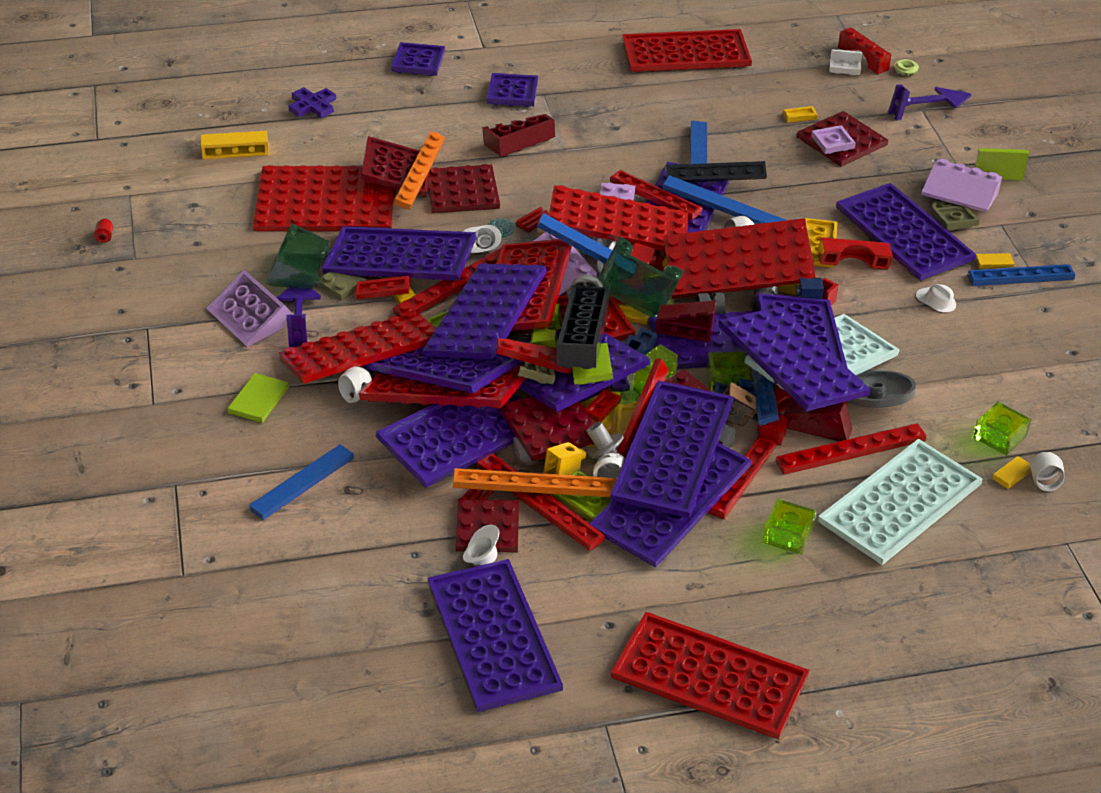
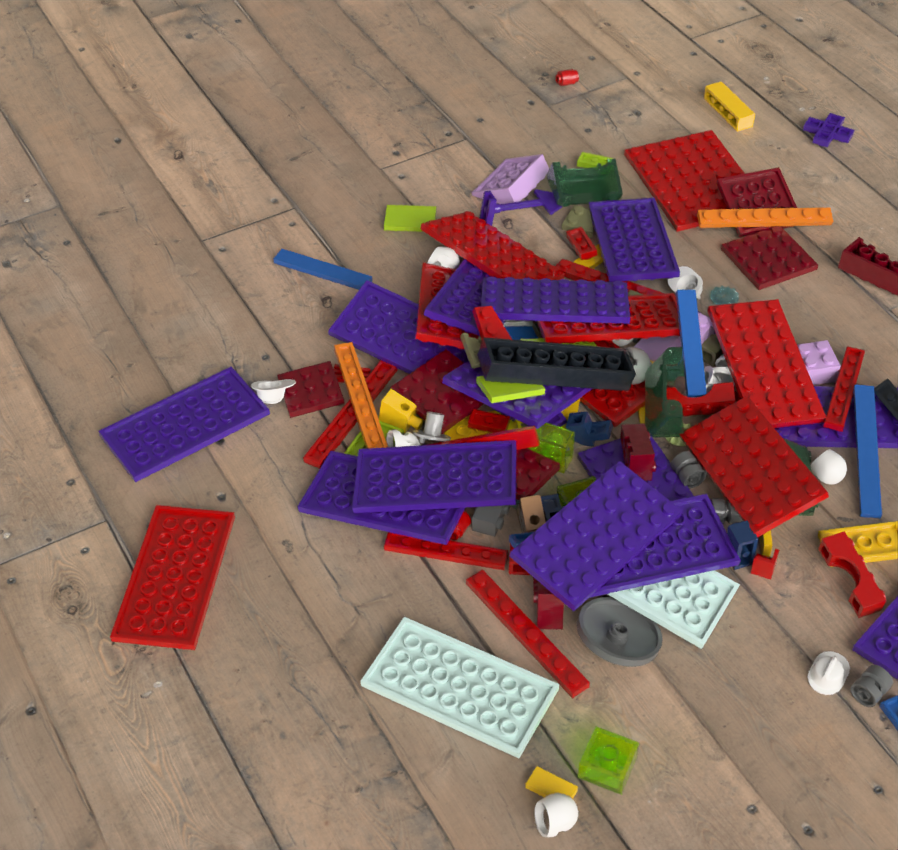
camera: 75 degrees right, 5 degrees up
(258, 249) = (590, 160): none -> lime plate
(789, 526) = (375, 594): clear neon green brick -> none
(961, 278) = (871, 685): none -> dark grey wheel

